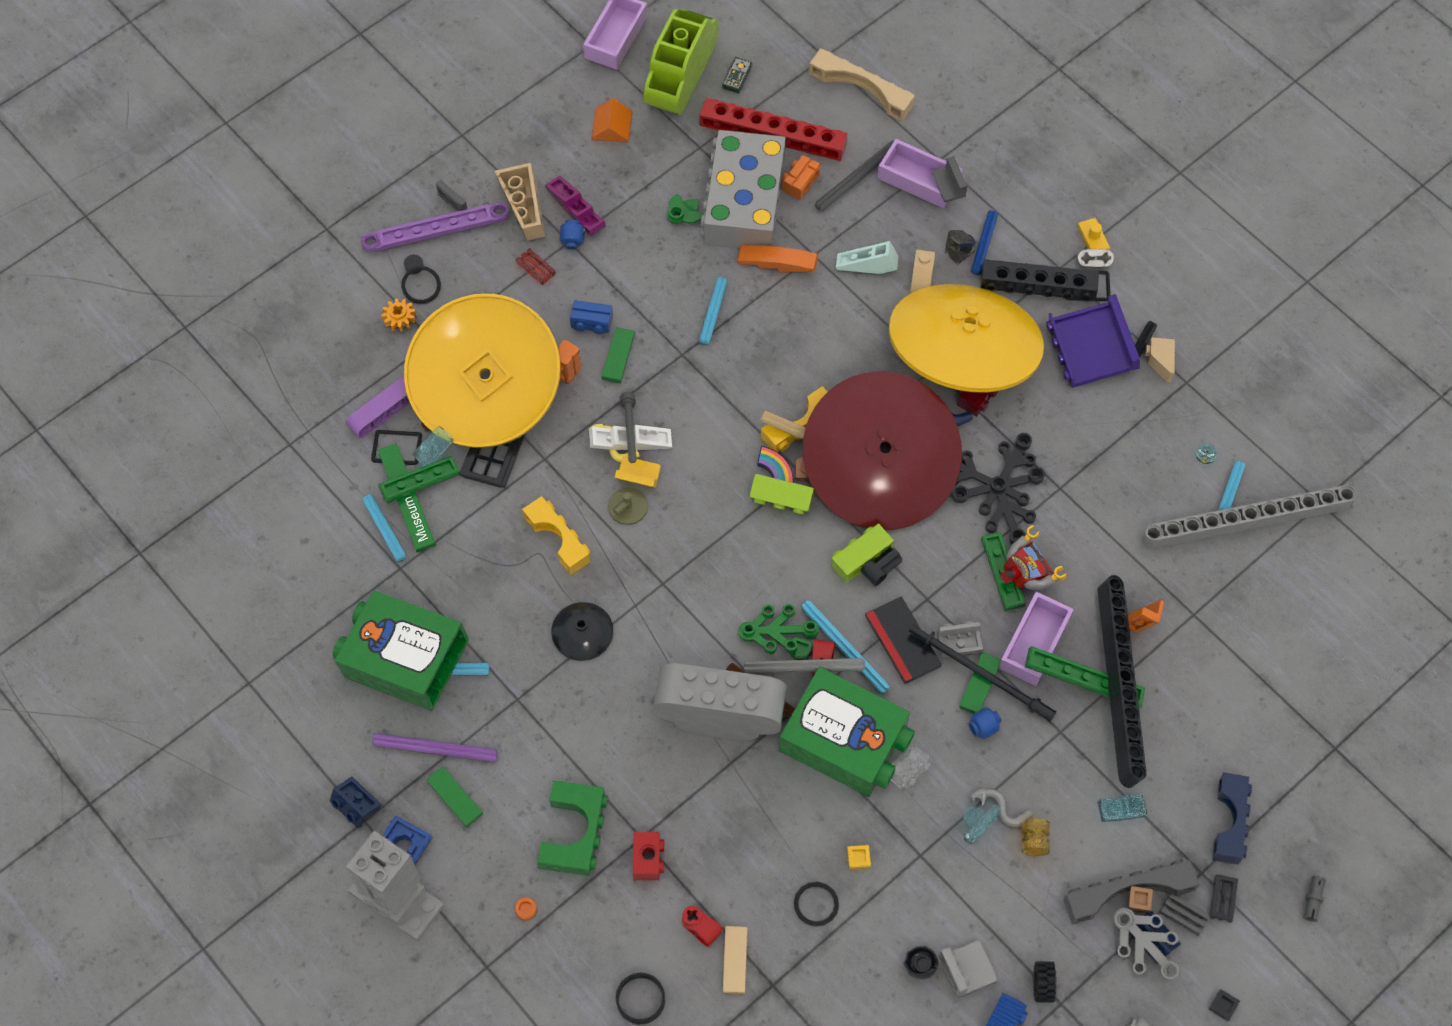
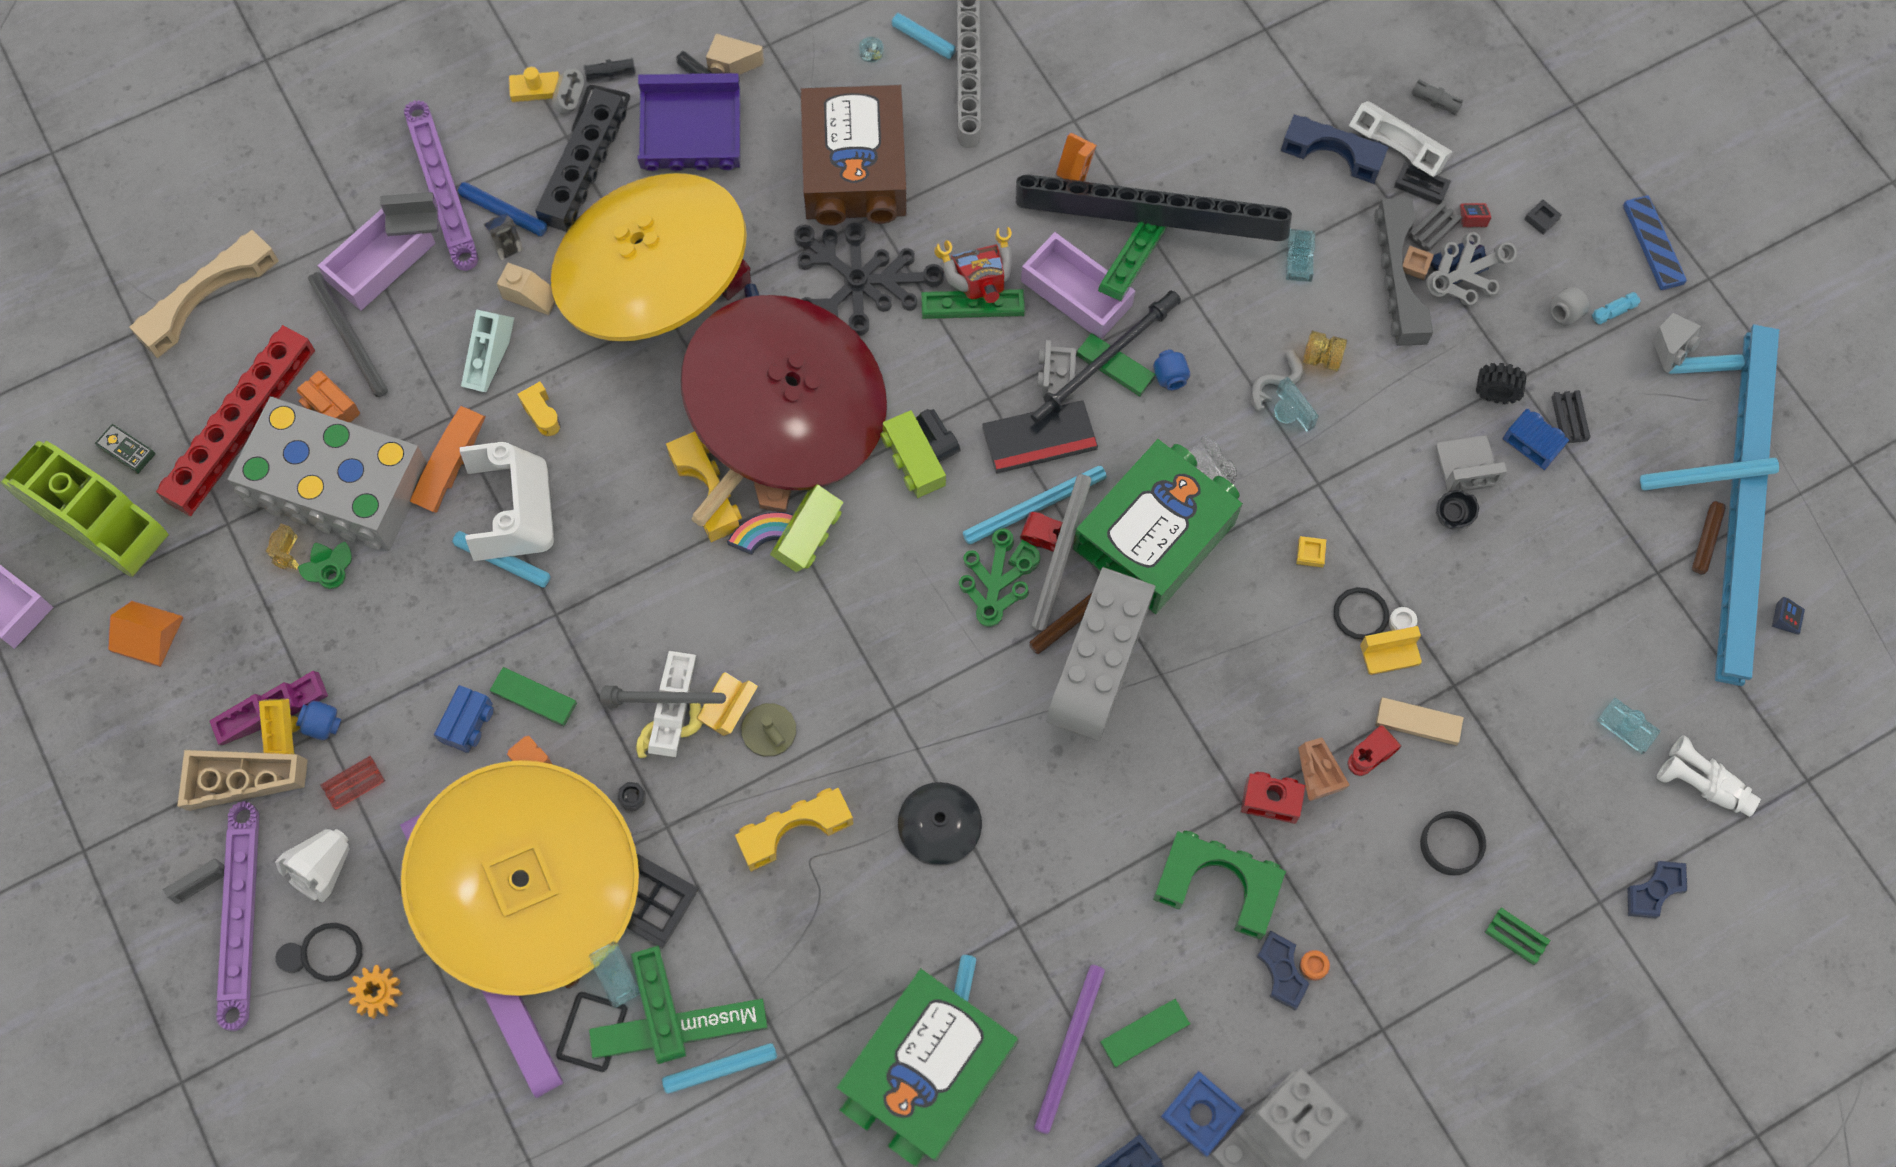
camera: 80 degrees left, 5 degrees up
(475, 258) = (315, 863): none -> white cone
(508, 891) = (1287, 983): none -> dark blue tile
(559, 430) = (631, 796): none -> black tile
(560, 211) = (277, 726): none -> yellow tile
(675, 887) = (1320, 770): none -> nougat wing
(688, 179) = (279, 546): none -> clear yellow bracket
(755, 312) = (530, 524): none -> white windscreen
(788, 930) = (1391, 650): none -> yellow panel
(816, 936) = (1402, 618): none -> white tile
(831, 303) = (542, 416): none -> yellow leg
(991, 198) = (441, 184): none -> medium lavender plate
(1100, 456) = (853, 153): none -> reddish brown brick
(1124, 280) = (609, 69): none -> black pin
(1207, 945) = (1475, 215): none -> red slope
(1266, 848) = (1416, 146): none -> white arch

